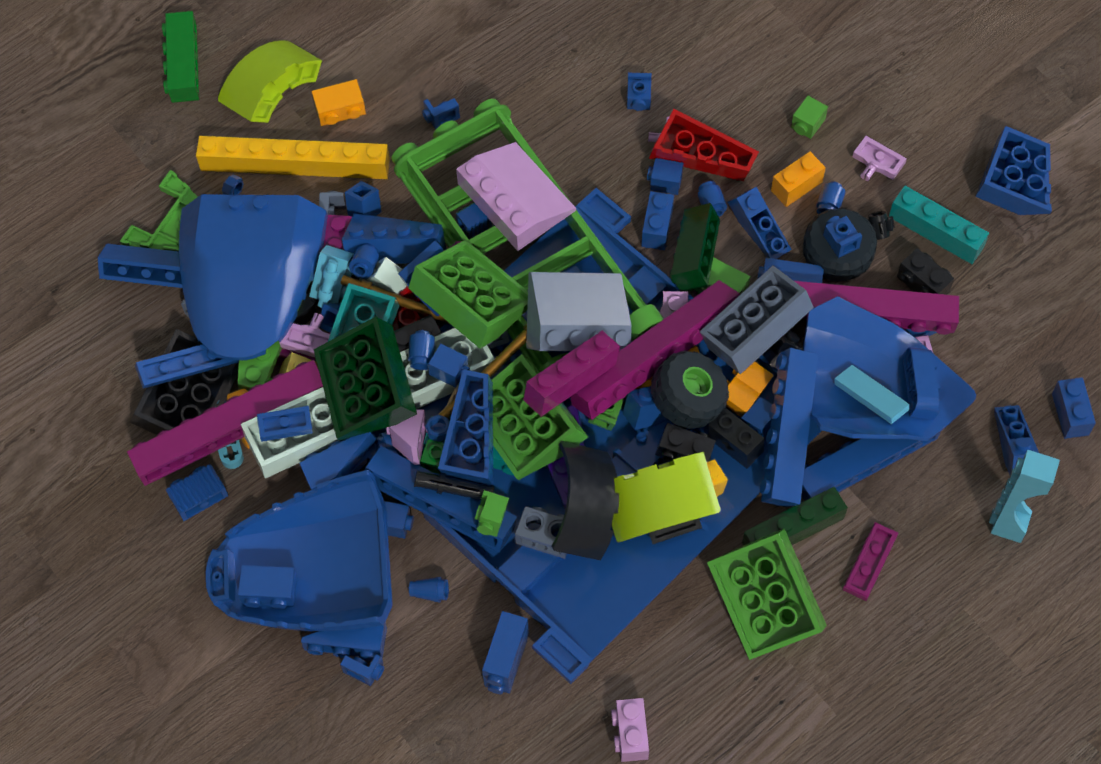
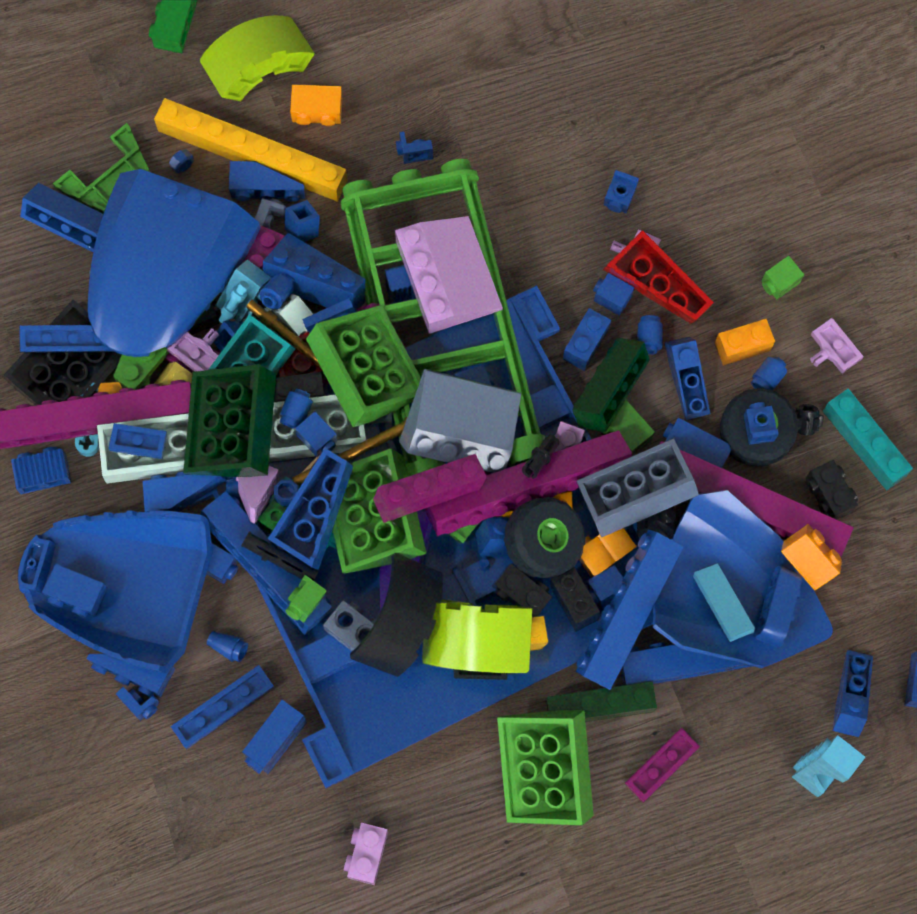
camera: 15 degrees right, 10 degrees up
(311, 180) = (256, 181): none -> blue slope
(445, 645) = (222, 707): none -> blue plate
(659, 320) = (540, 456): none -> black axle
(933, 331) = (812, 556): none -> light orange brick

